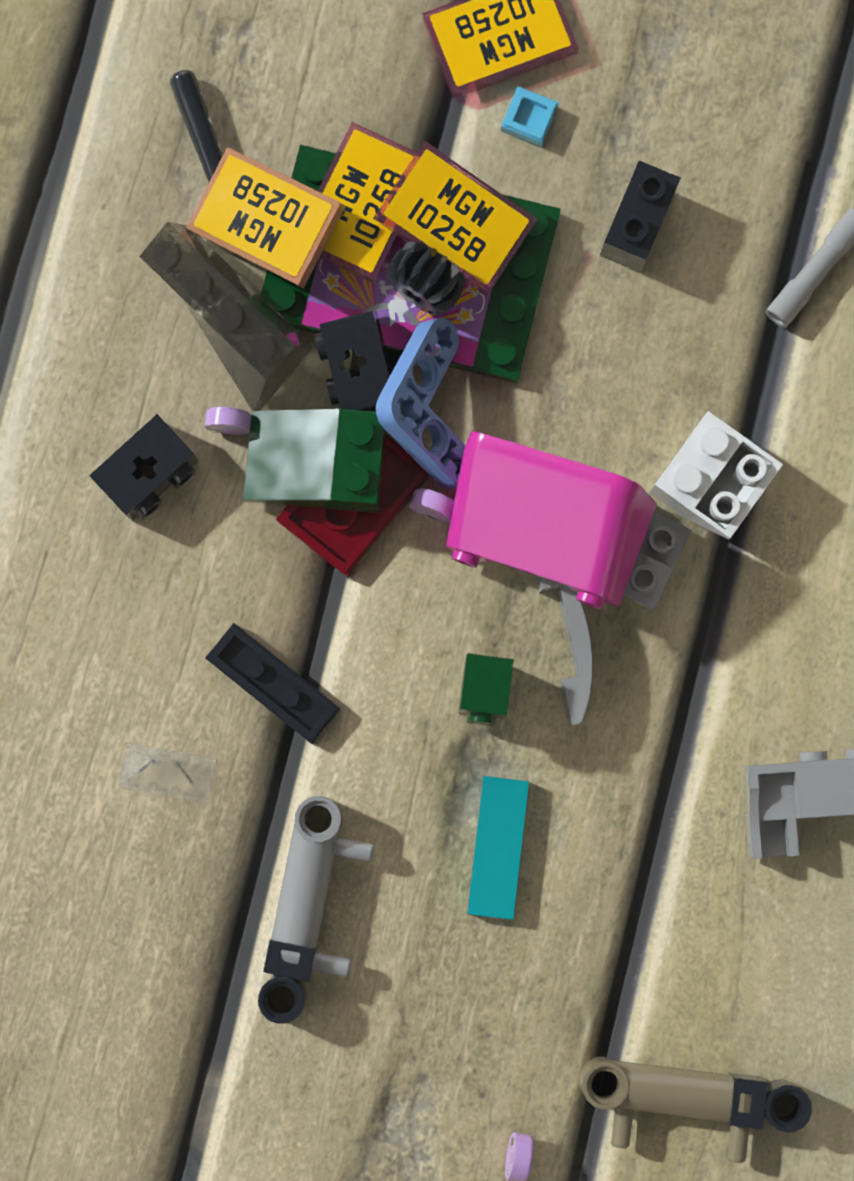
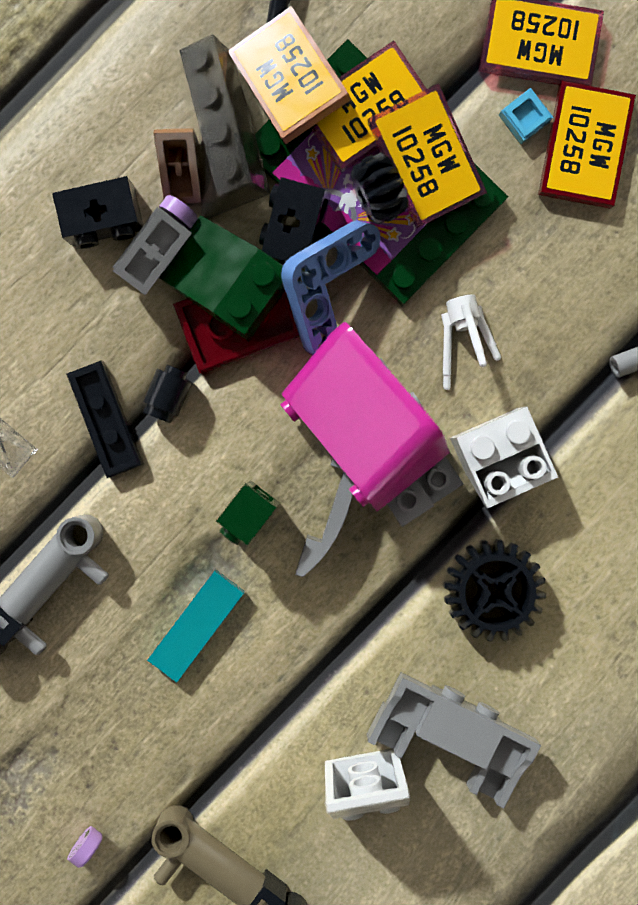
camera: 30 degrees right, 5 degrees up
(202, 372) = (179, 163): none -> medium nougat slope
(225, 475) = (151, 250): none -> light grey hinge
(324, 616) = (166, 393): none -> black brick
(432, 505) = (289, 357): lavender tile -> none
(591, 354) = (465, 315): none -> white plant
(609, 109) = (586, 144): none -> yellow tile
(639, 216) = (562, 234): black brick -> none
(781, 907) = (365, 785): none -> white slope
(784, 643) = (482, 603): none -> black gear

